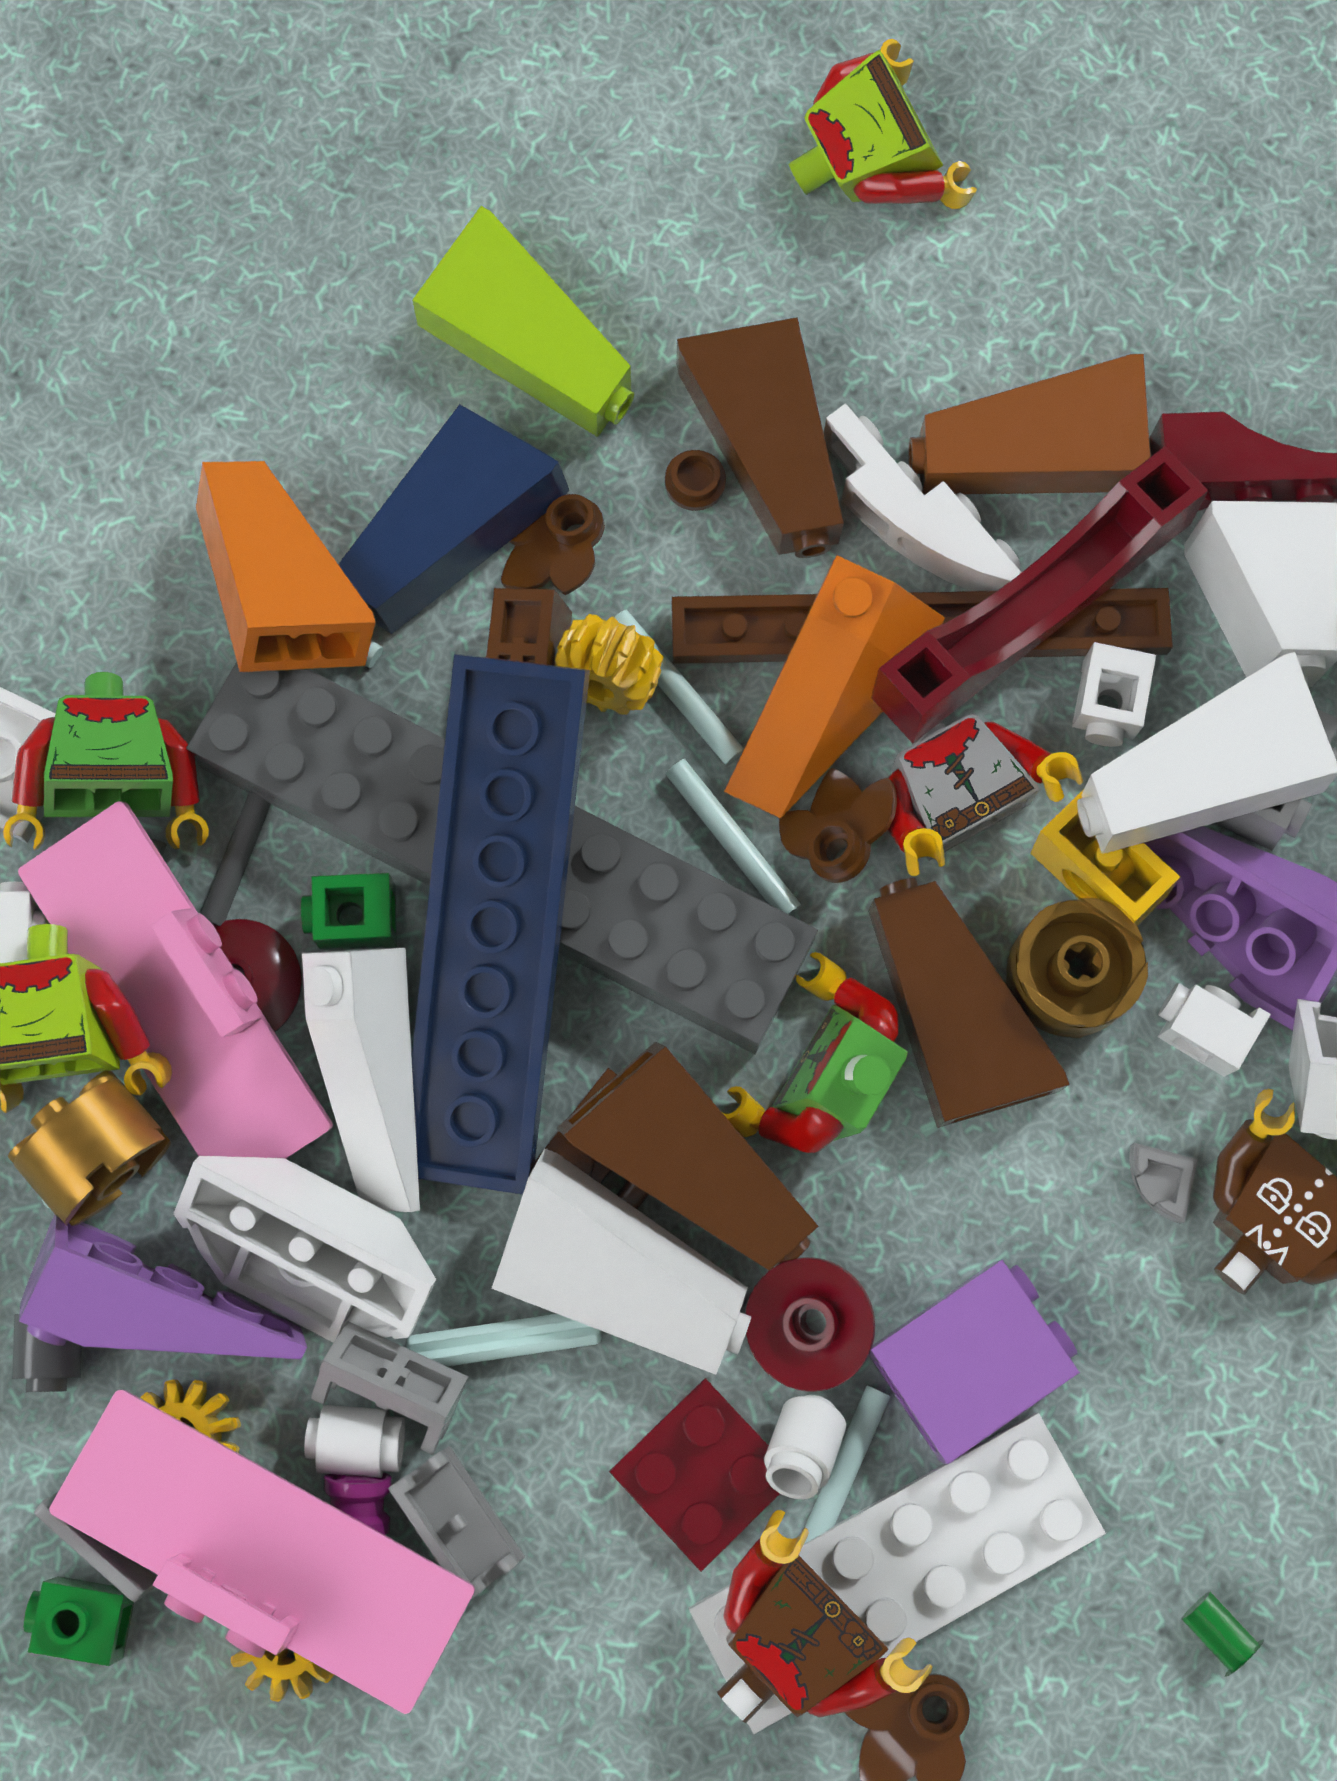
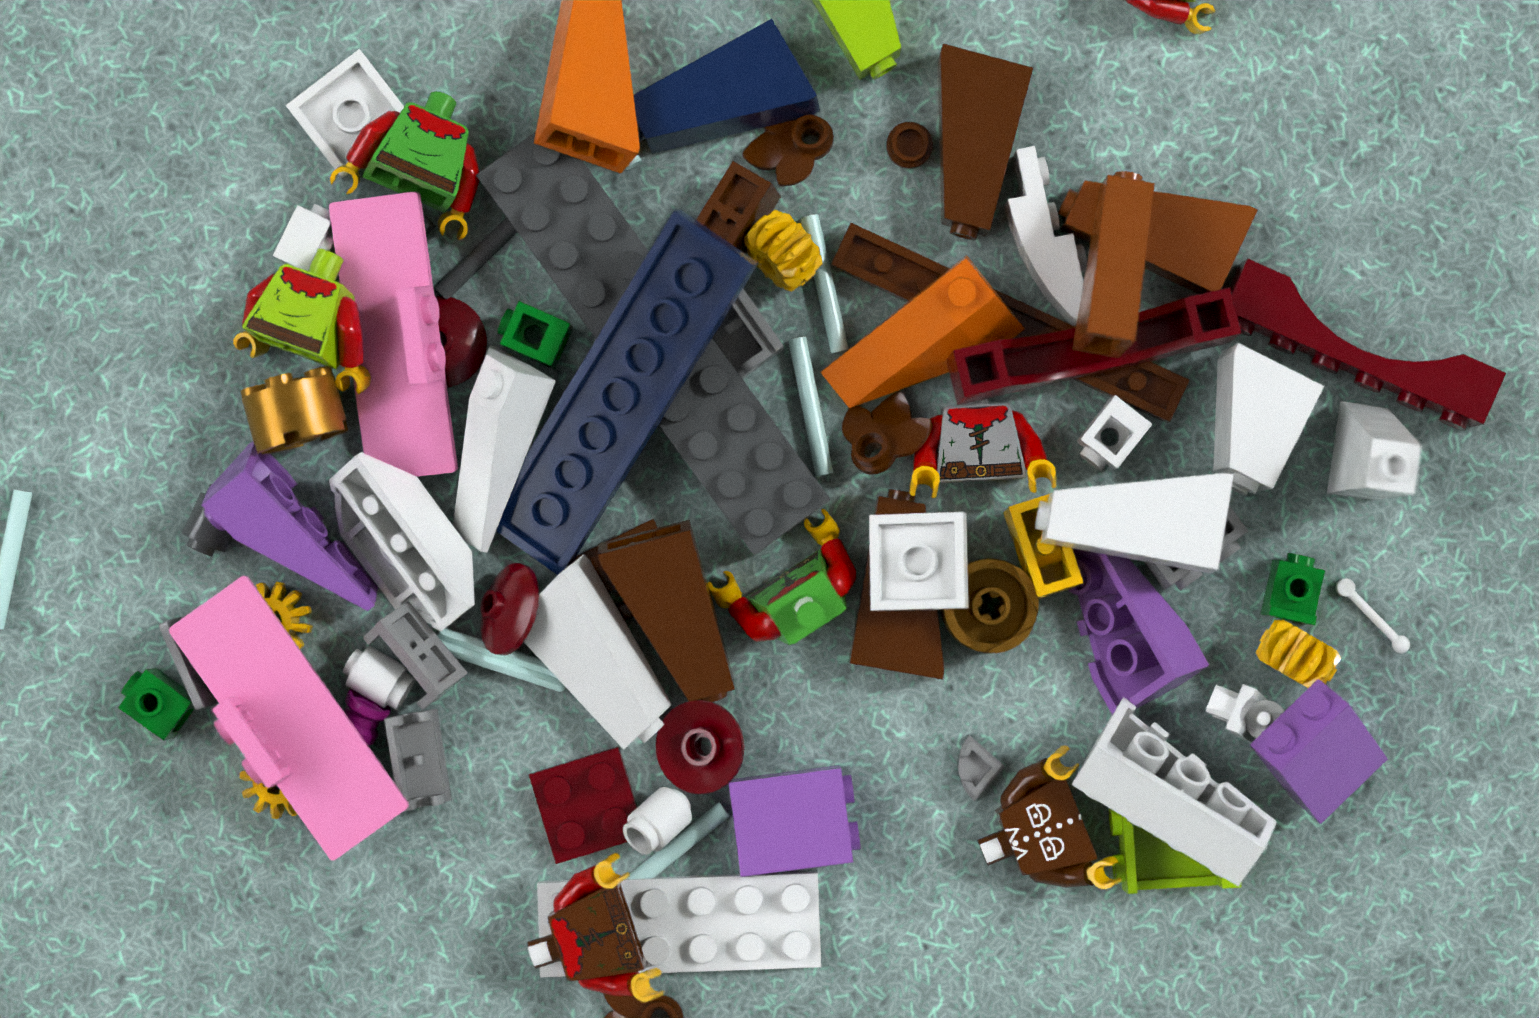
camera: 30 degrees right, 10 degrees up
(483, 1267) = (509, 609): none -> dark red dish
(617, 786) = (746, 337): none -> light grey hinge
(967, 949) = (918, 561): none -> white plate
(1021, 487) = (1115, 266): none -> dark orange slope
(1210, 1026) = (1058, 685): white brick -> none

